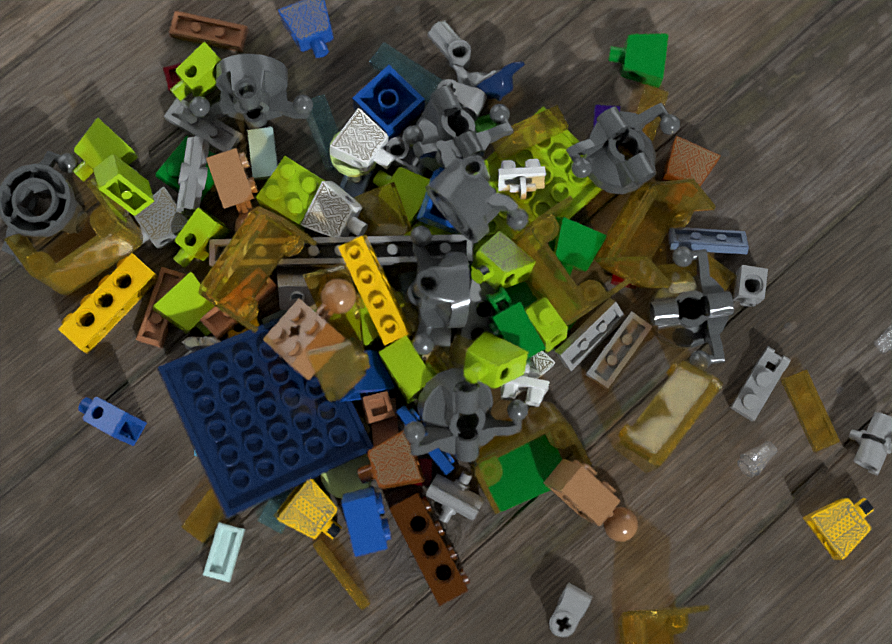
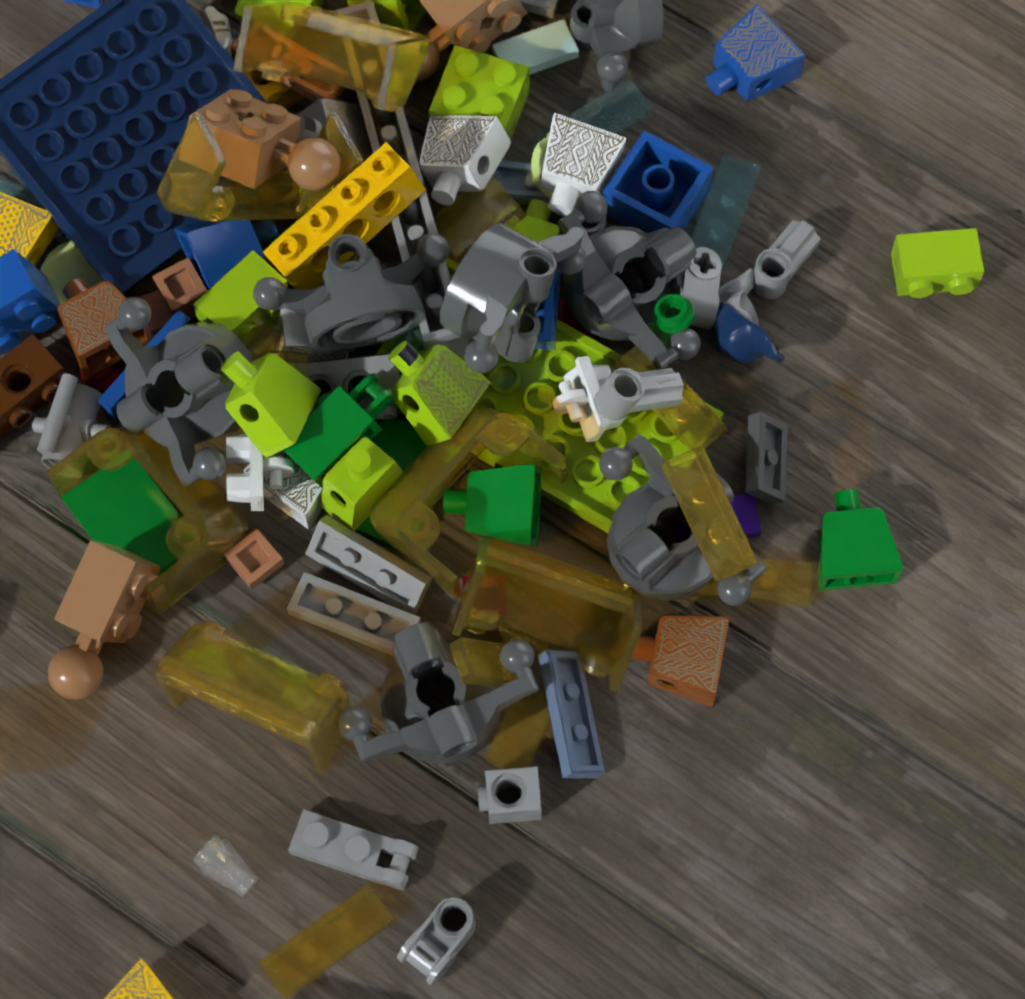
camera: 80 degrees right, 10 degrees down
(476, 108) = (669, 306): none -> green plate
(532, 145) = (638, 391): none -> light grey piece
(569, 401) = (254, 559): none -> nougat plate
(571, 89) = (766, 458): none -> dark grey plate
(630, 121) = (709, 513): none -> clear yellow tile
(826, 347) = (437, 942): none -> light grey piece

